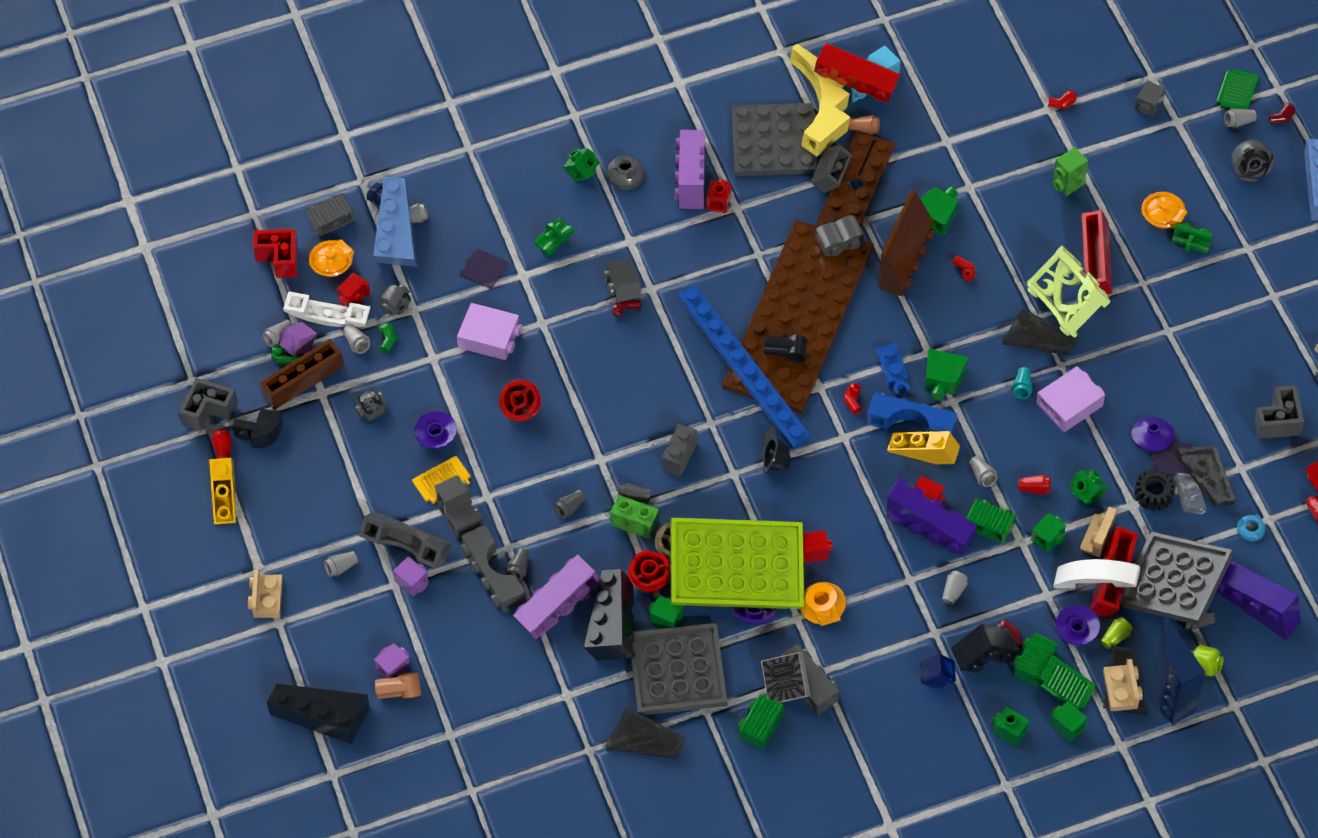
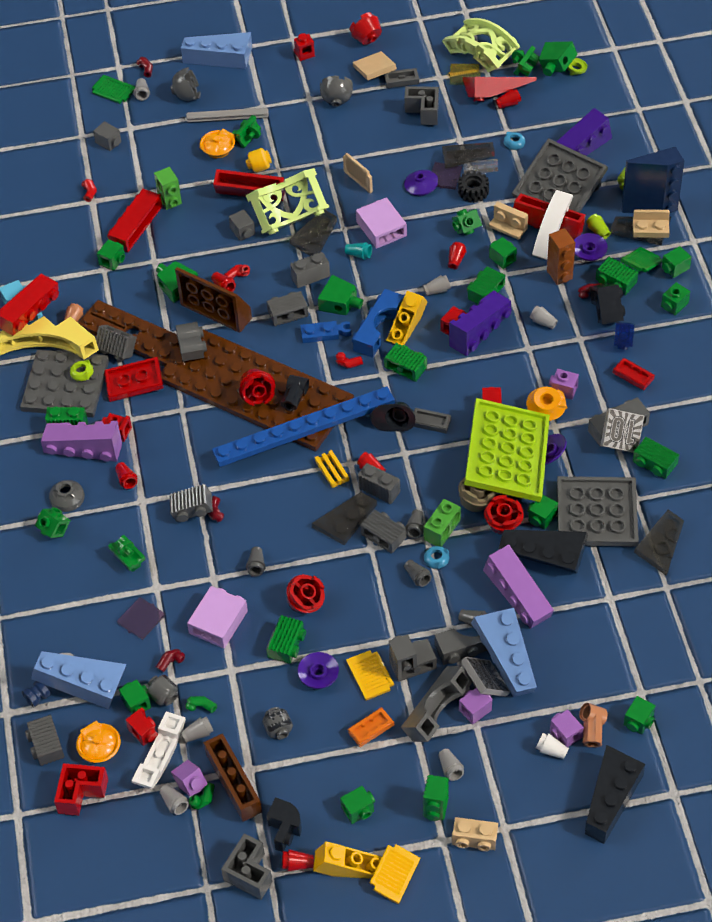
camera: 80 degrees left, 5 degrees down
(217, 530) = (394, 872): none -> yellow window
(285, 487) = (357, 804): none -> green brick
(292, 549) = (435, 797): none -> green brick
(370, 650) = (551, 746): none -> white cone
(376, 487) = (370, 727): none -> orange plate
(384, 276) = (135, 696): none -> green brick
(415, 730) = (639, 715): none -> green brick
(437, 299) = (170, 656): none -> dark red arm
(441, 578) = (485, 676): none -> tile
(468, 396) = (285, 639): none -> green brick
(469, 590) = (505, 644): none -> medium blue wedge
(561, 354) = (256, 562): none -> dark grey cone
(596, 529) = (436, 563): none -> dark azure piece
(618, 464) = (383, 531): none -> dark grey brick
(634, 429) = (346, 518): none -> clear smoke wing
(654, 218) = (126, 476): none -> red cone
(695, 403) = (325, 457): none -> yellow tile
(706, 440) = (370, 459): none -> red cone
(717, 148) = (66, 415): none -> green brick
(780, 306) = (256, 387): none -> red cone
(782, 492) = (431, 420): none -> dark grey tile
(785, 153) = (81, 376): none -> lime piece
(788, 199) = (133, 379): none -> red tile
(854, 618) = (565, 381): none -> medium lavender brick
(858, 453) = (405, 361): none -> green brick
(884, 690) = (633, 374): none -> red plate
(916, 324) = (287, 308): none -> dark grey brick
(943, 257) = (223, 281): none -> red cone
(963, 141) = (111, 255): none -> green brick
(977, 337) = (310, 269): none -> dark grey brick
(1019, 152) = (135, 219): none -> red brick
(1034, 257) = (242, 225): none -> dark grey brick
(1036, 586) = (560, 256): none -> dark orange brick
(1144, 360) = (357, 172): none -> tan window
(1145, 257) = (258, 160): none -> yellow head
(1219, 214) = (226, 114): none -> light grey axle
(1279, 317) = (336, 90): none -> dark grey cylinder

